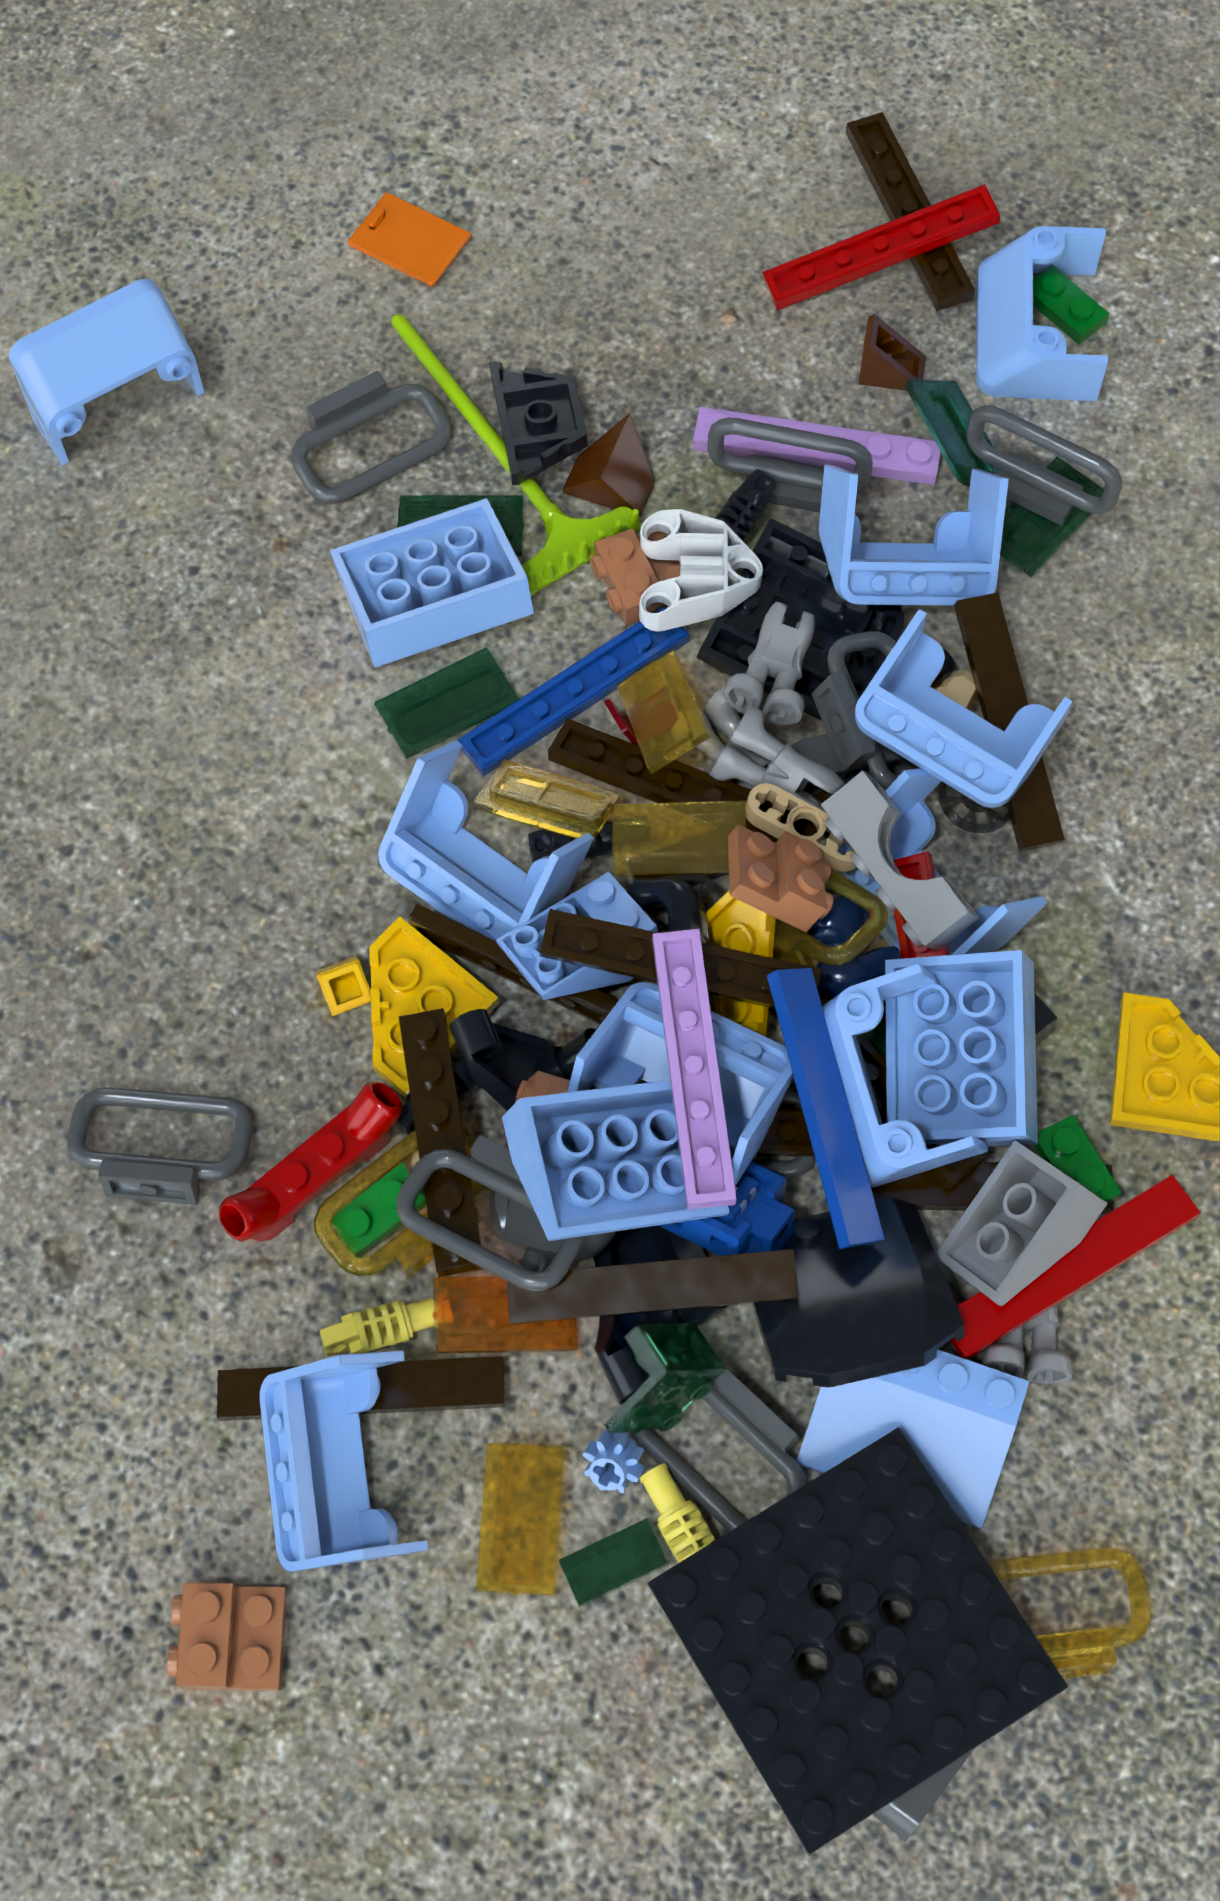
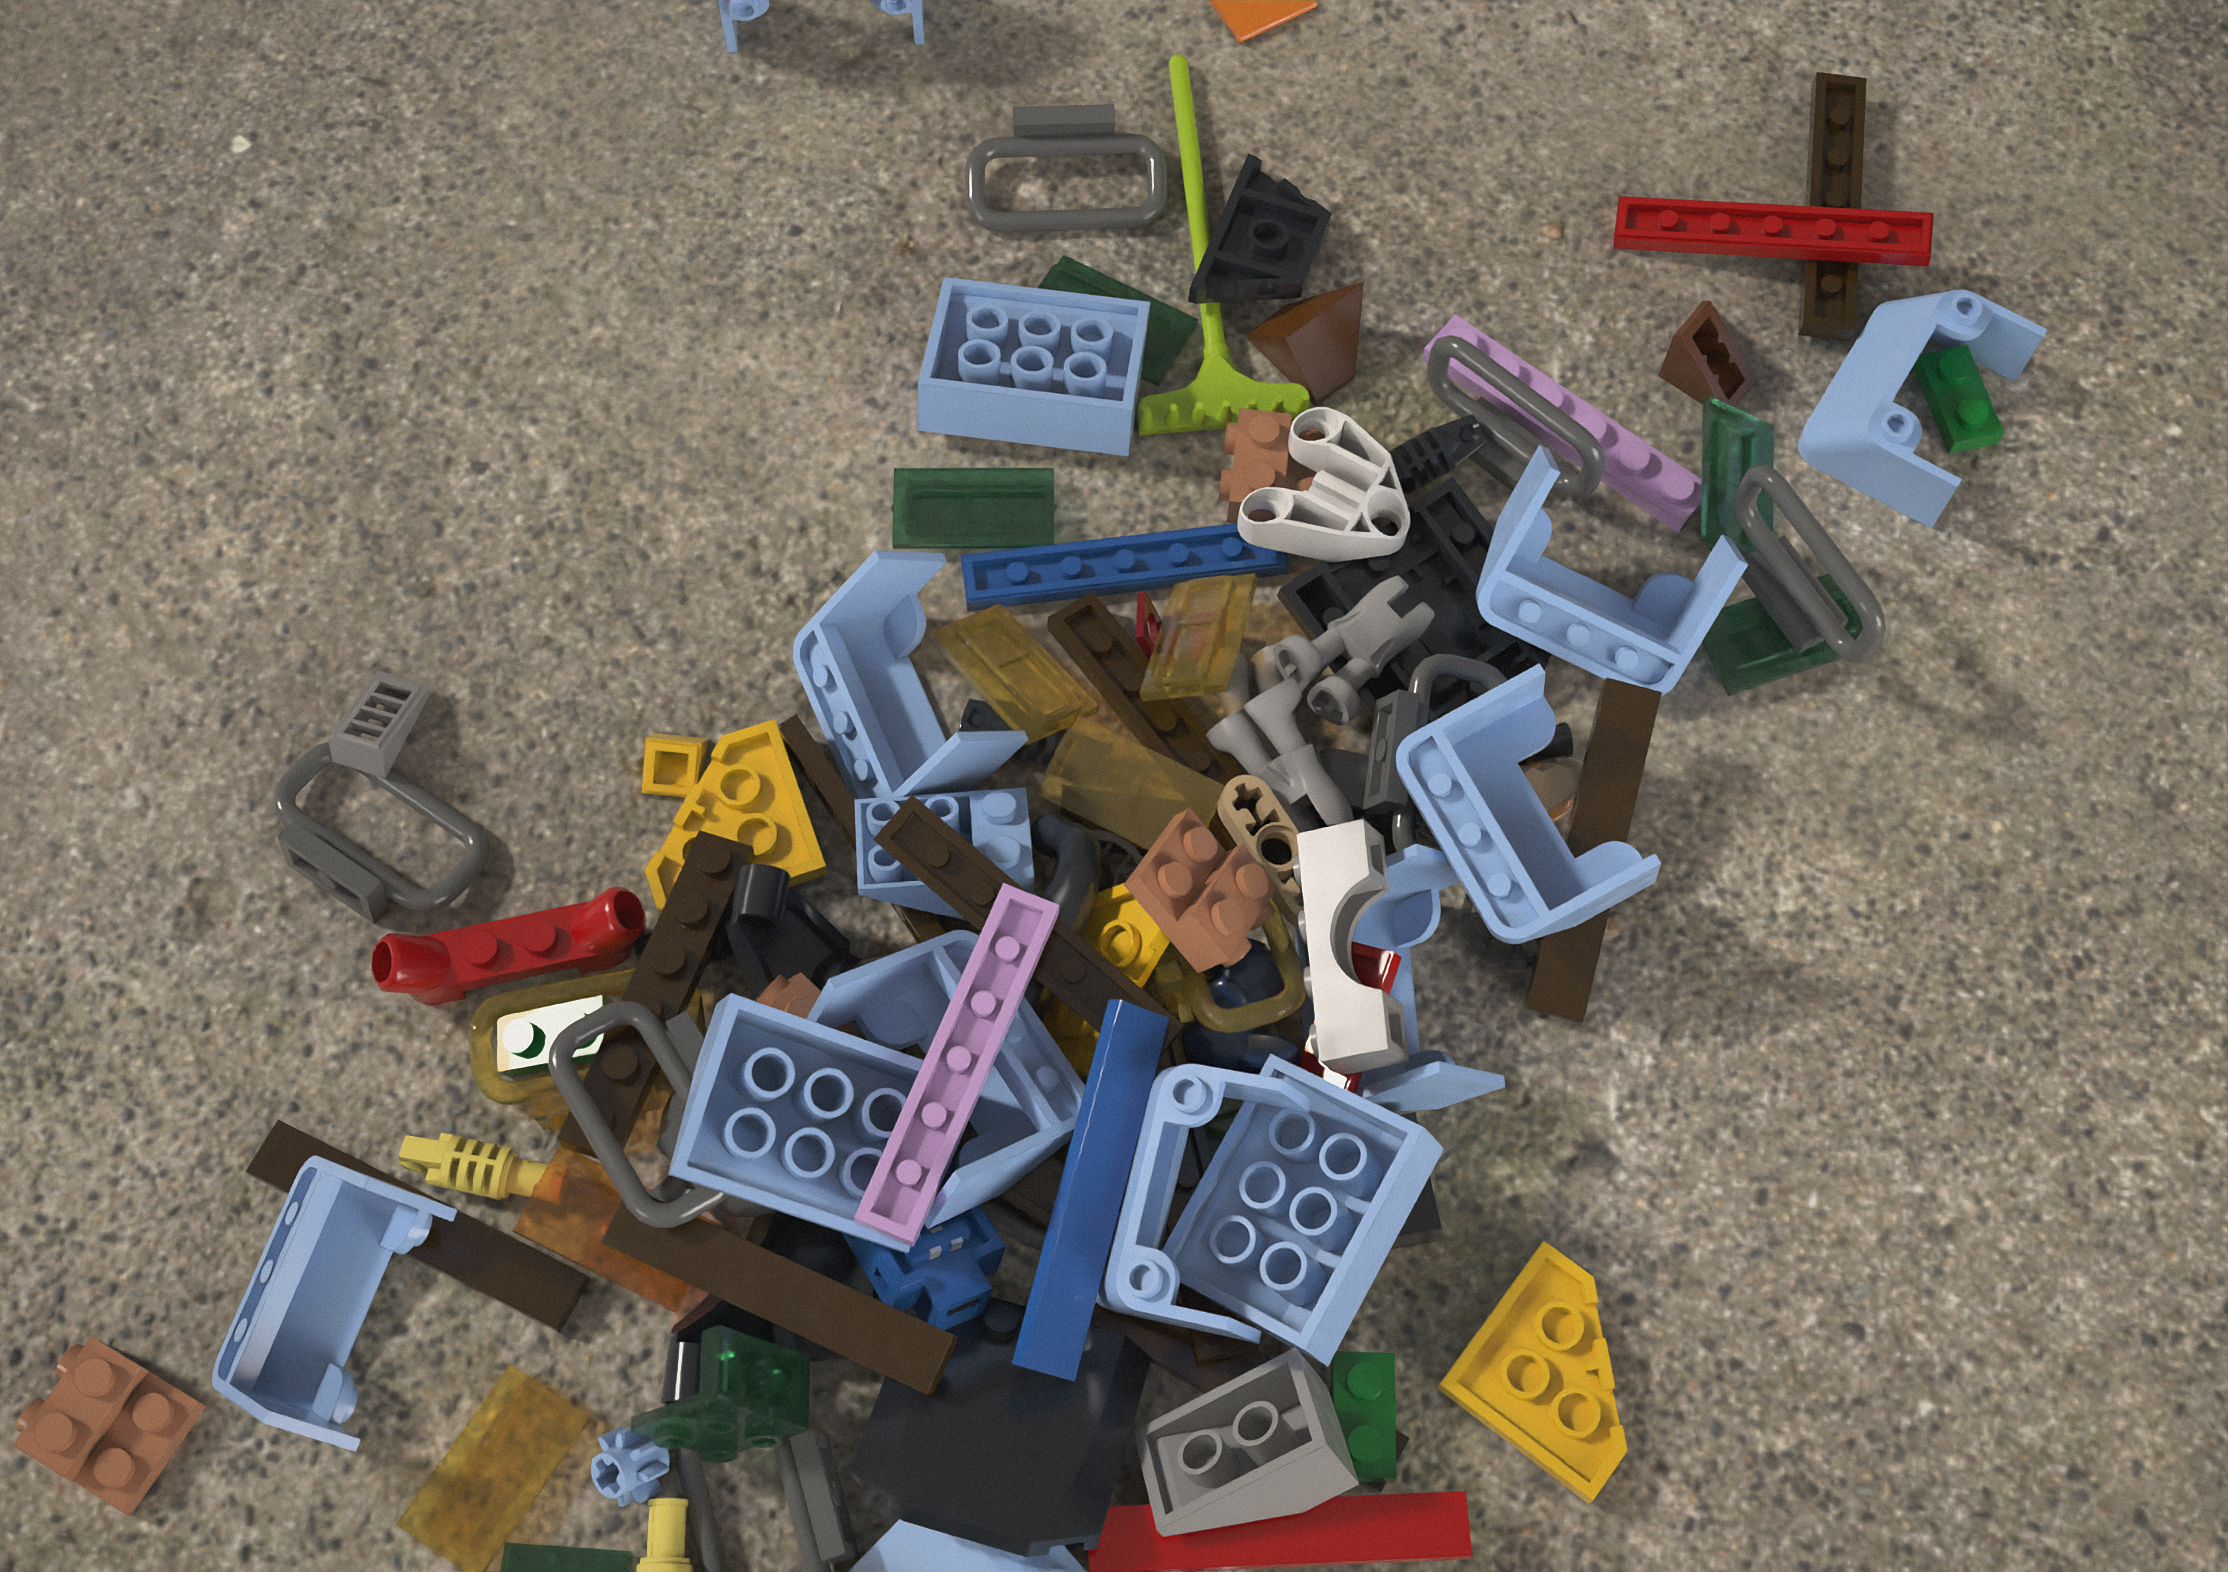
camera: 25 degrees right, 0 degrees up
(118, 1088) = (378, 756): none -> light grey slope

